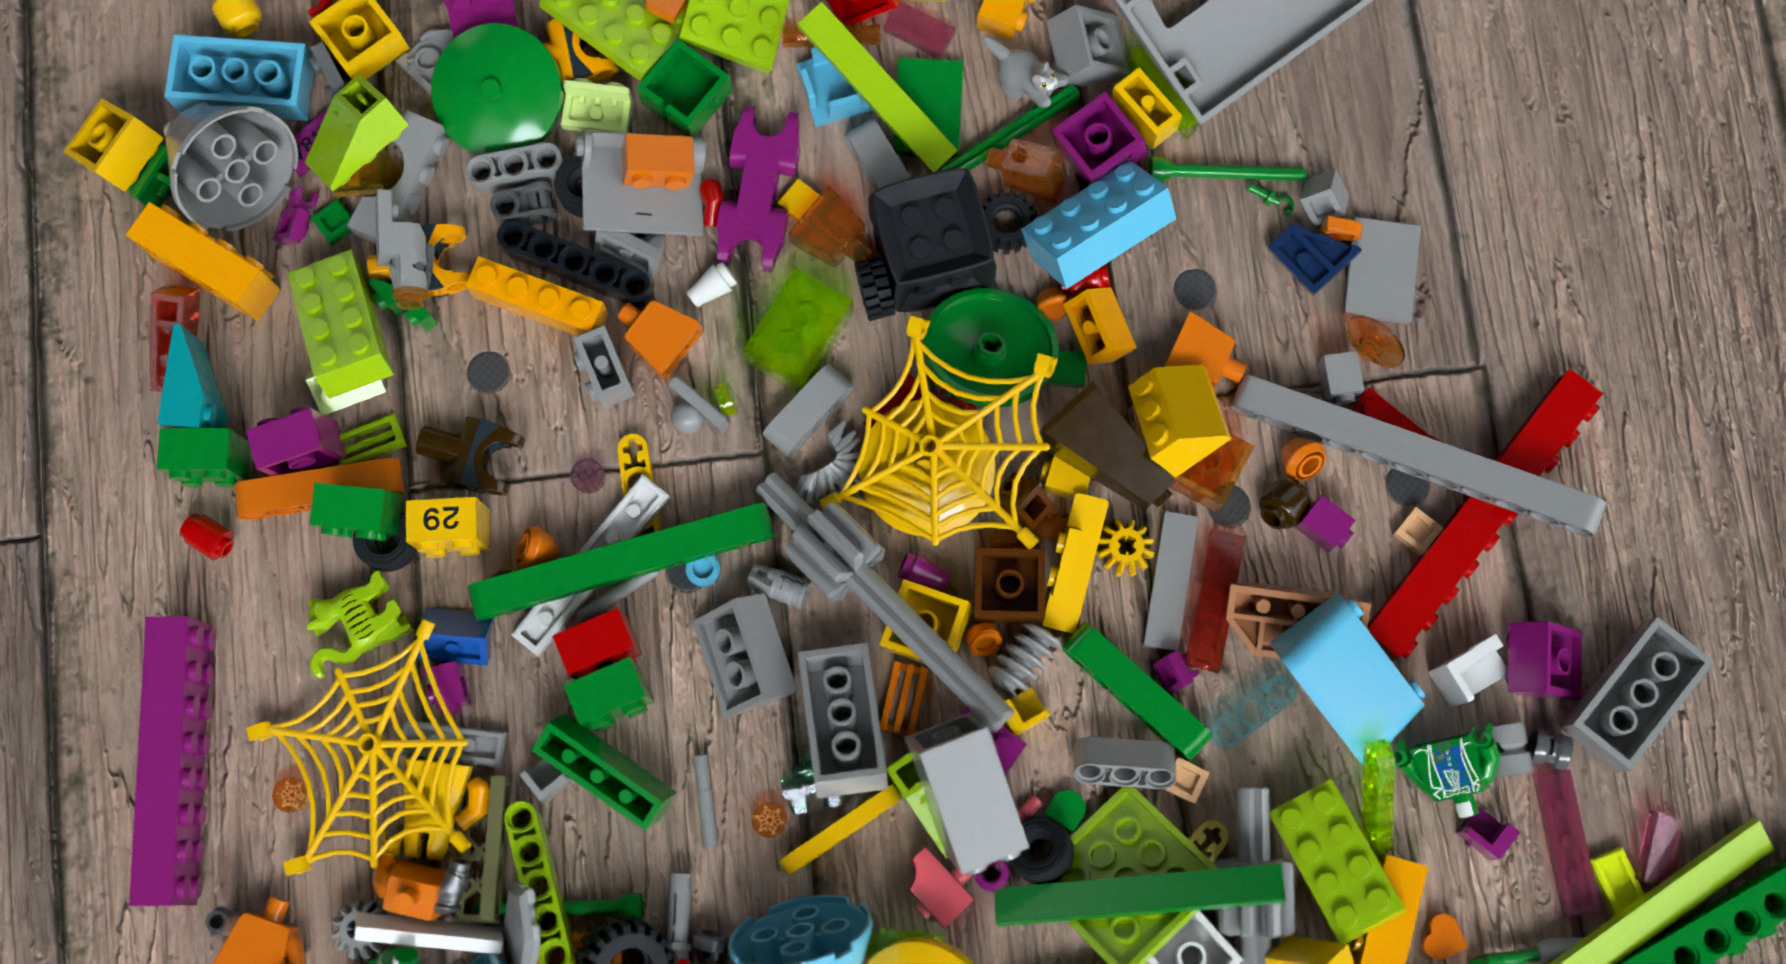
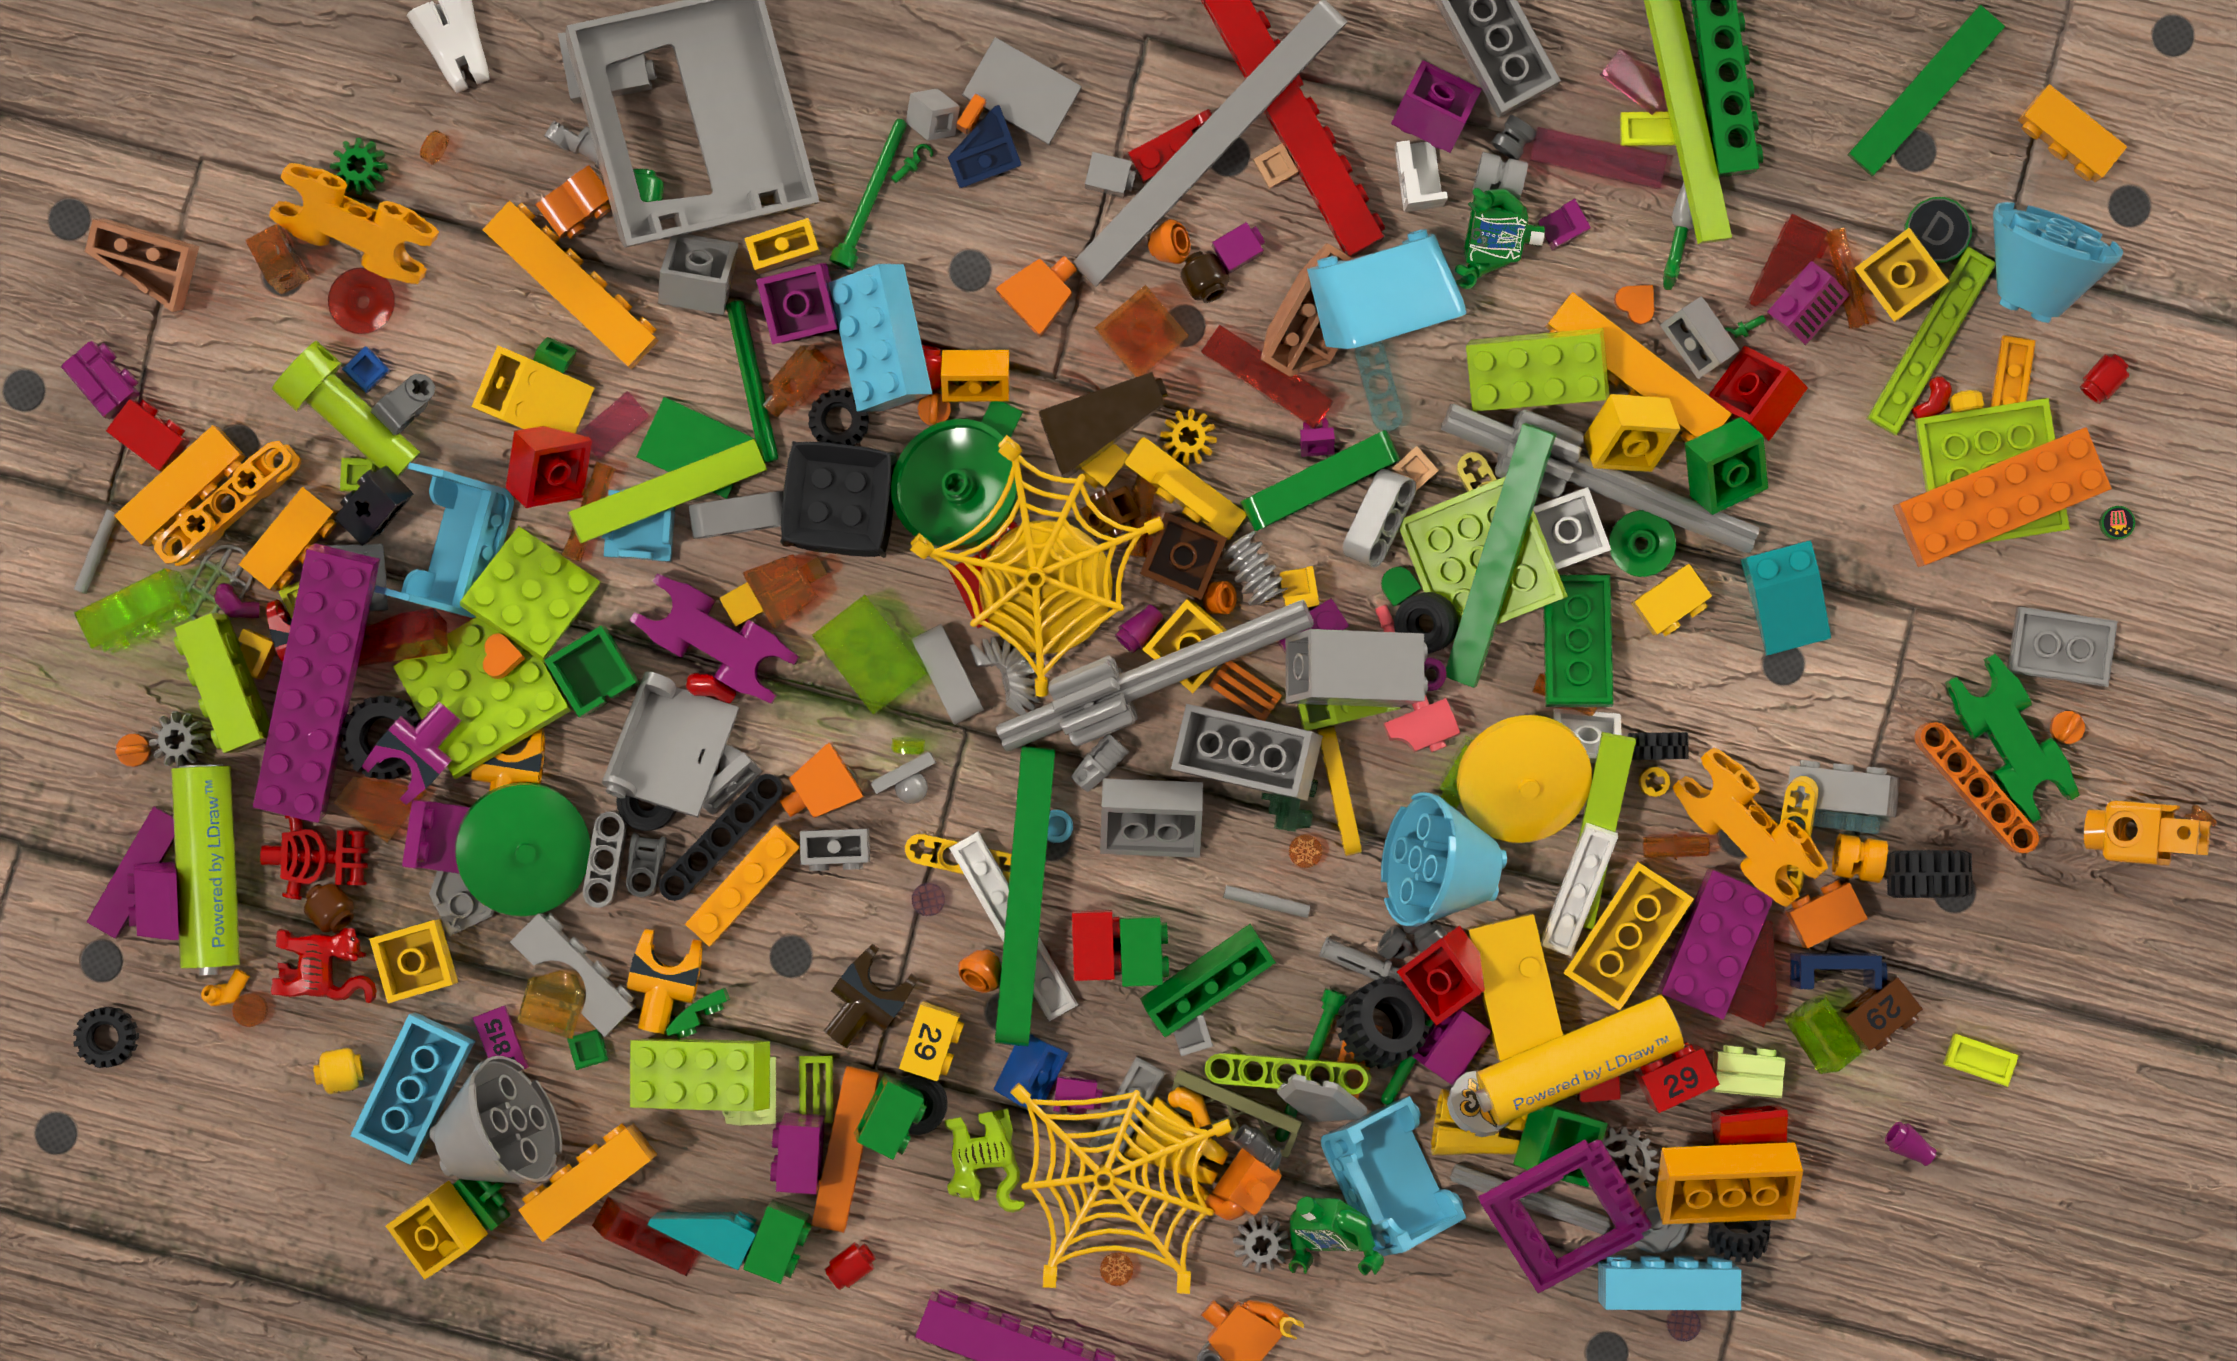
camera: 70 degrees left, 10 degrees up
(293, 221) = (574, 1086): magenta plate -> none
(324, 64) = (432, 1003): dark grey wing -> none
(353, 132) = (517, 1000): lime slope -> none
(405, 252) = (655, 988): light grey plate -> none
(428, 933) = (1291, 1183): white tile -> none
(596, 106) = (575, 761): yellowish green bracket -> none
(613, 595) = (1049, 919): light grey piece -> none
(657, 161) = (657, 724): orange brick -> none
(712, 284) = (792, 717): white cone -> none
(874, 288) = (858, 568): black tyre -> none
(1023, 73) = (700, 344): light grey animal -> none
(1140, 59) = (769, 222): clear neon green tile -> none
(1170, 581) = (1233, 408): light grey tile -> none
(1179, 416) = (1093, 343): yellow slope -> none
(1374, 341) = (1088, 129): clear orange dish -> none
(1378, 795) = (1497, 311): clear neon green beam -> none

